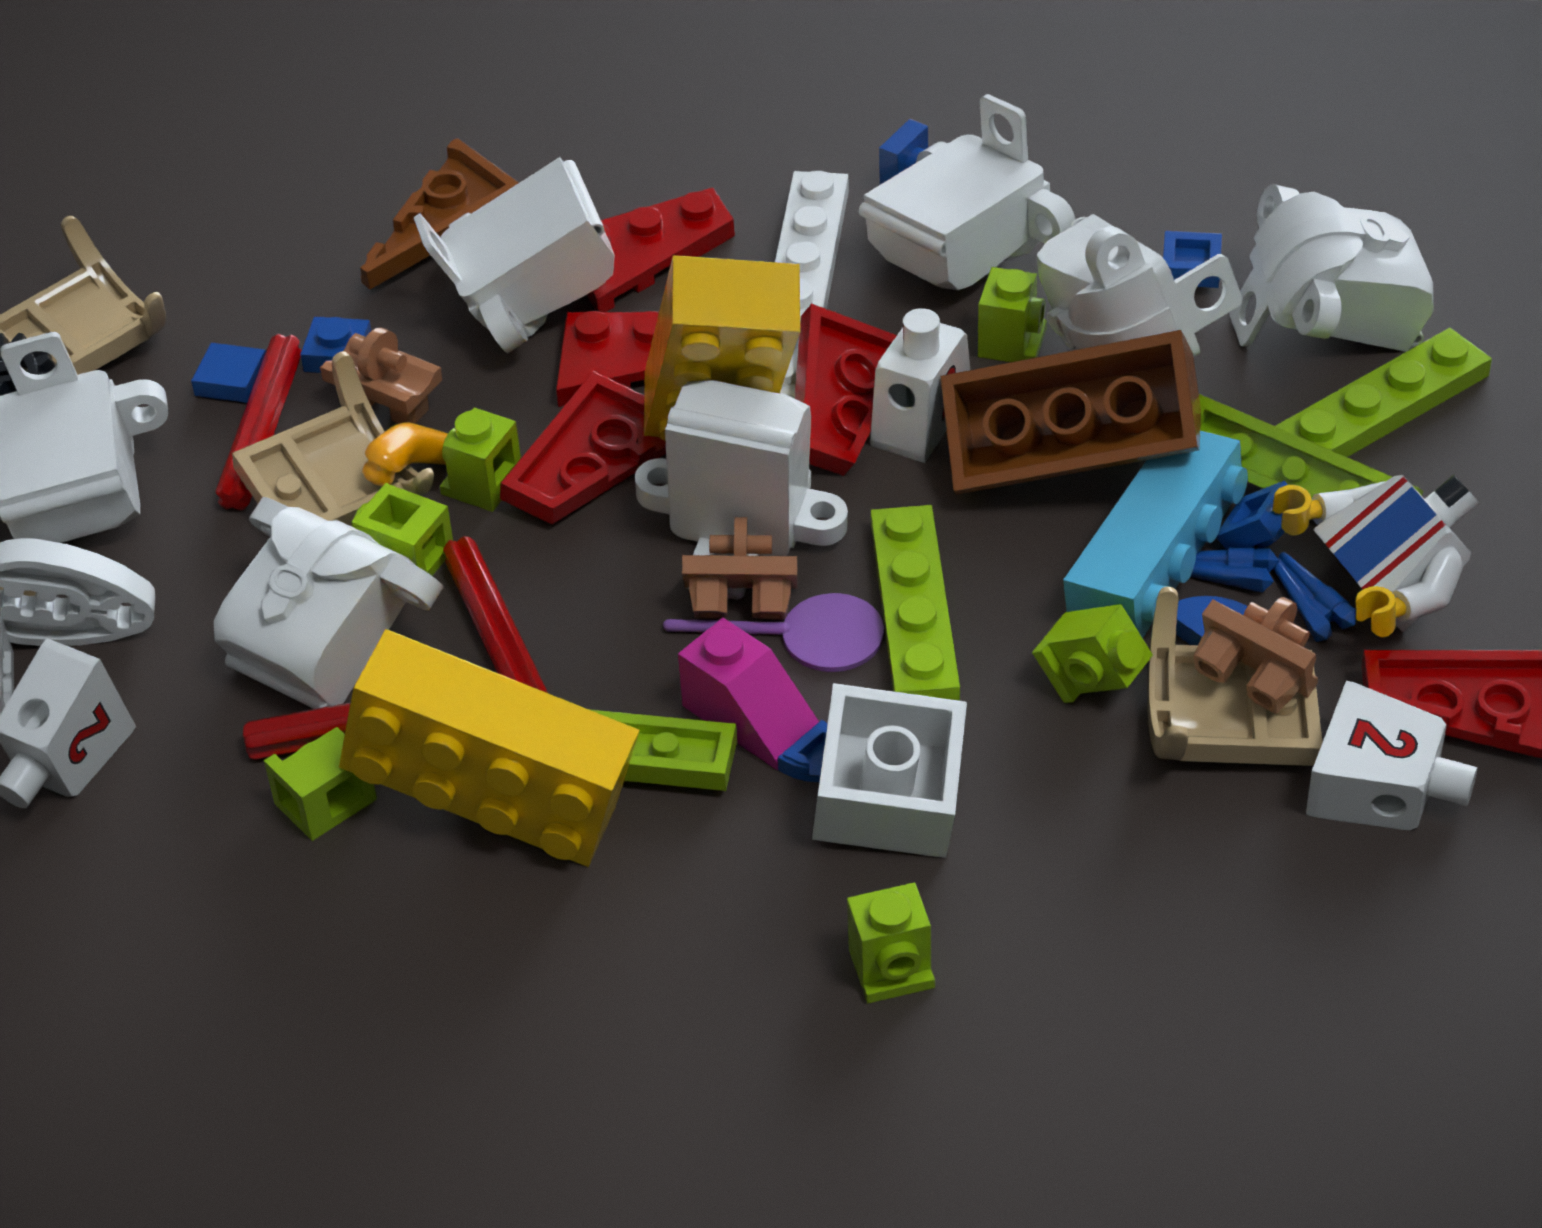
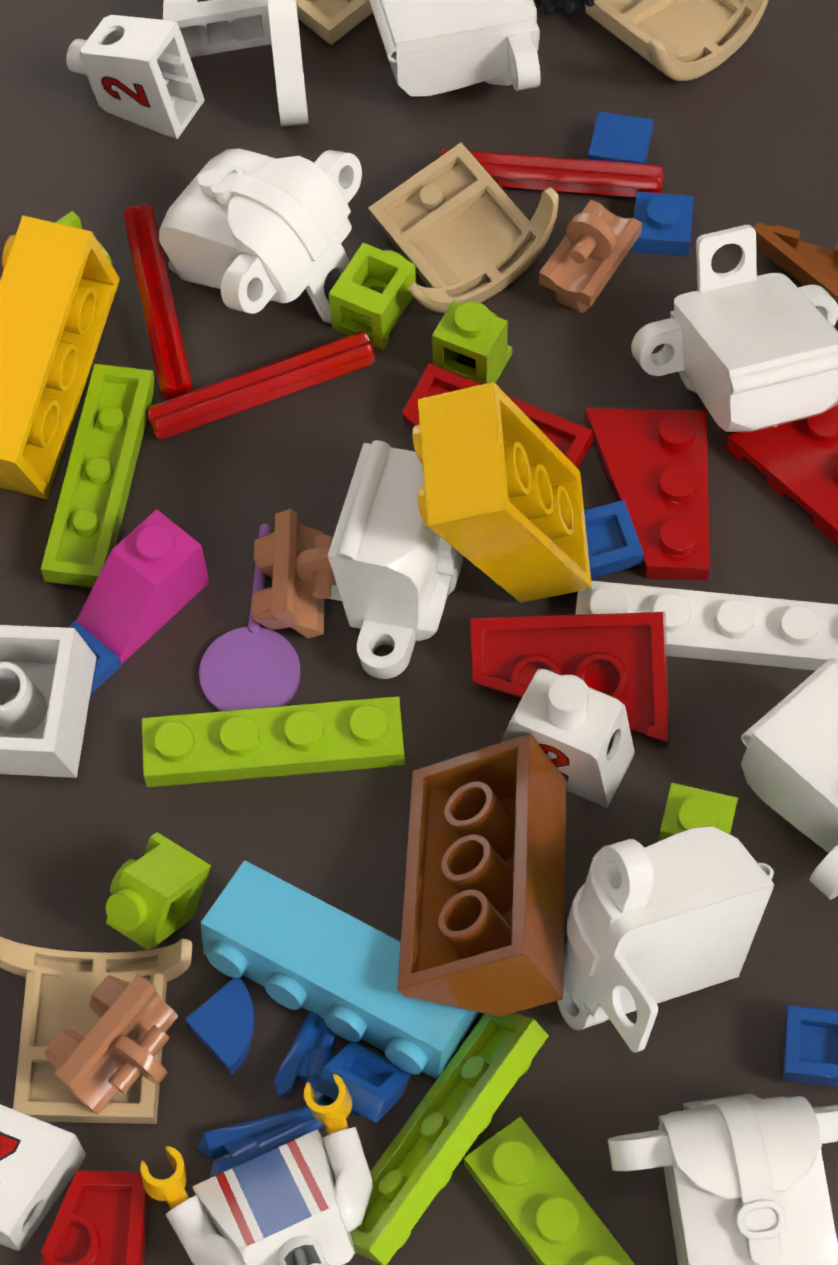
camera: 90 degrees right, 15 degrees up
(398, 448) = (481, 277): light orange arm -> none

